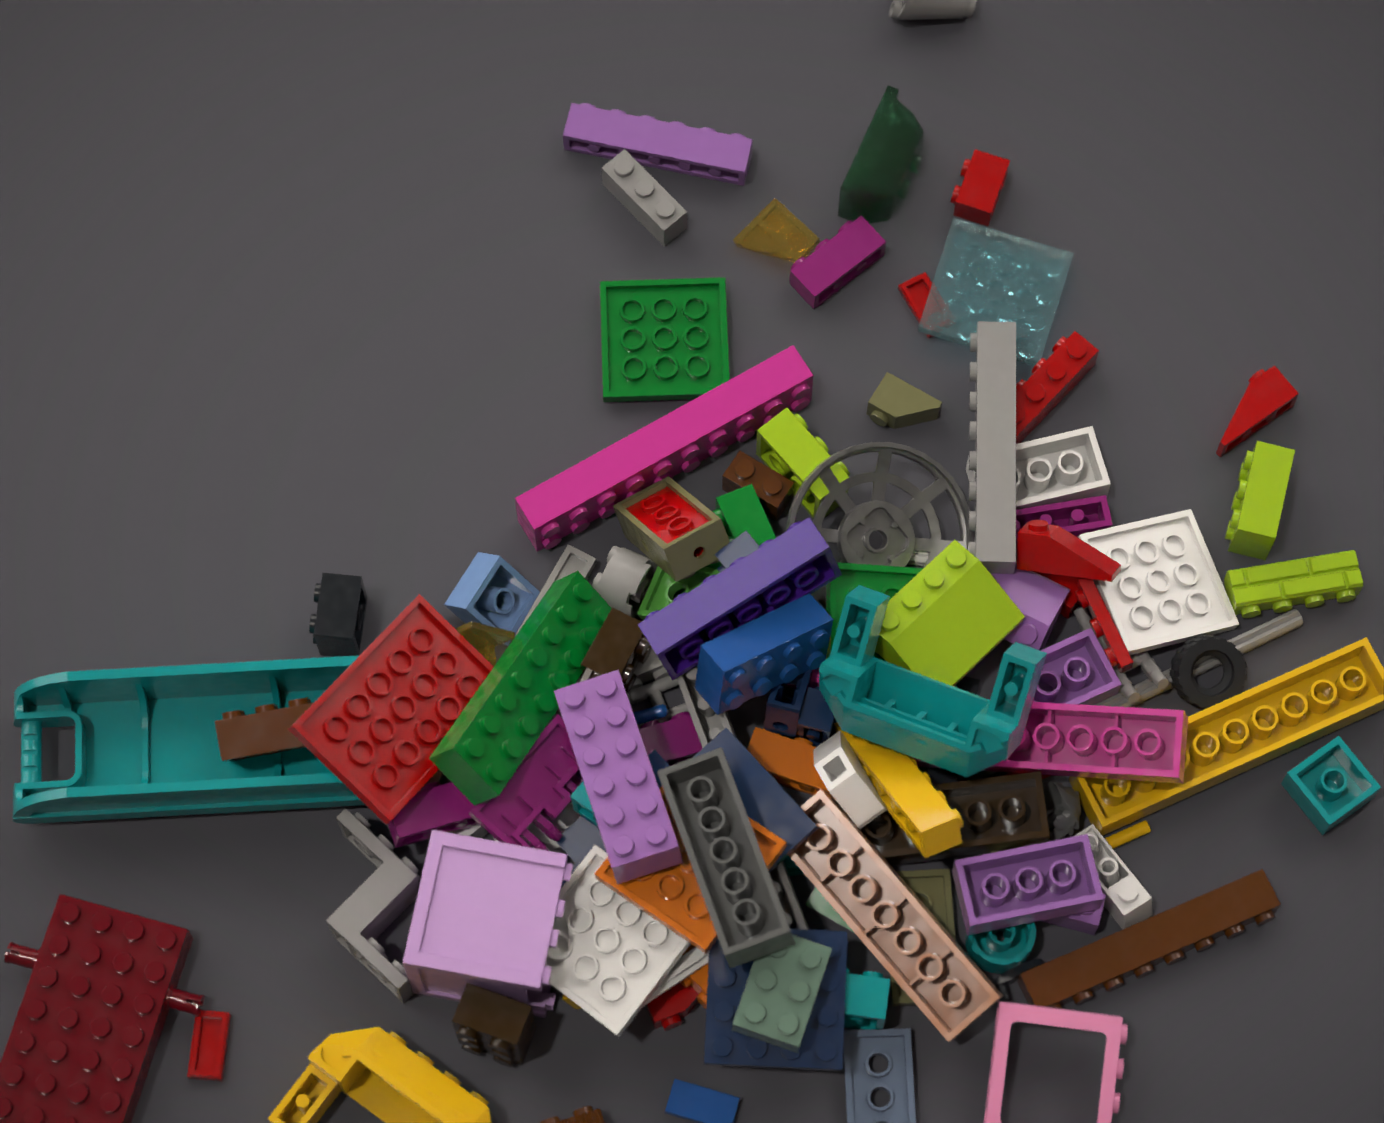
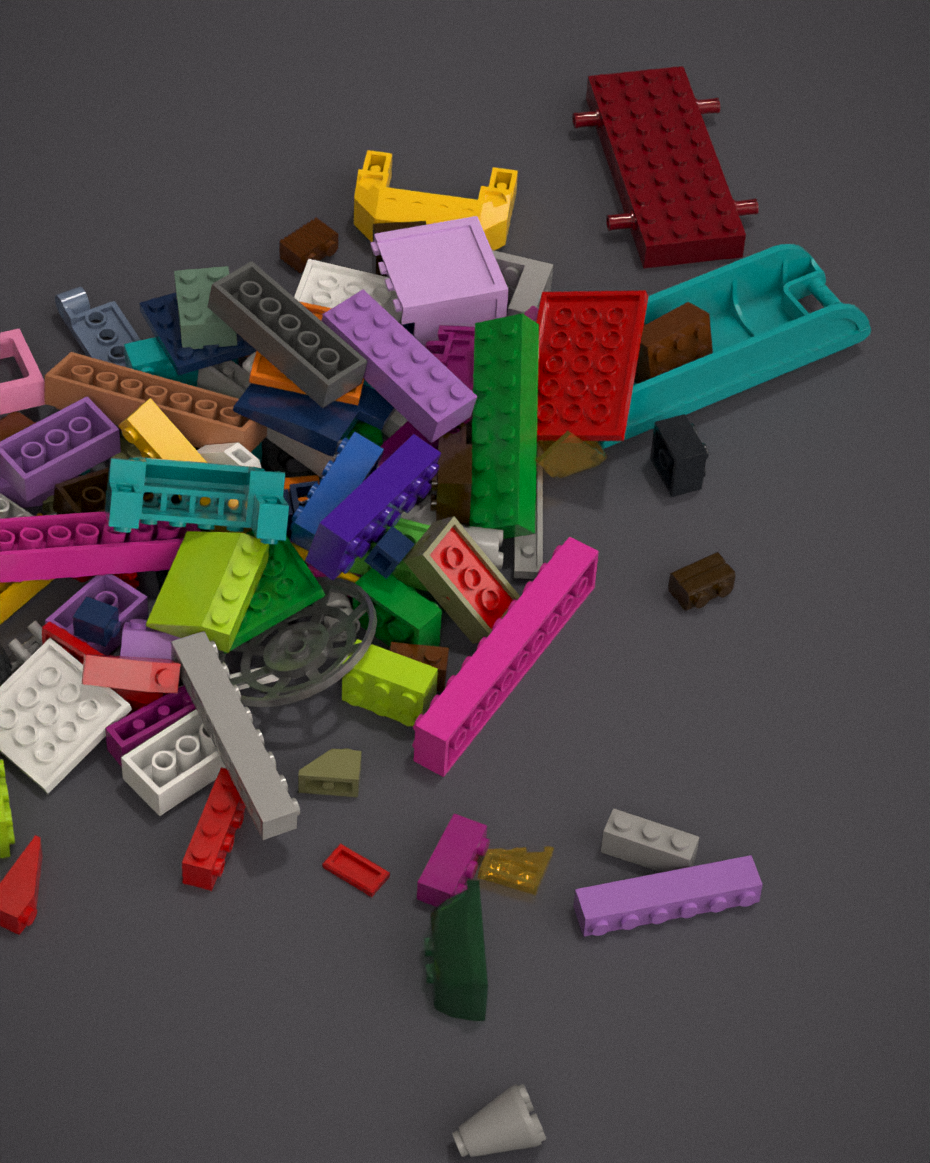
camera: 150 degrees right, 20 degrees down
(209, 1045) = (588, 217): red tile -> none
(410, 462) = (702, 581): none -> dark brown brick
(492, 594) = (578, 515): medium blue slope -> none
(663, 338) = (562, 748): green plate -> none
(981, 187) = (359, 977): red brick -> none
(995, 280) = (299, 895): clear light blue plate -> none
(1074, 640) = (96, 621): none -> dark blue brick

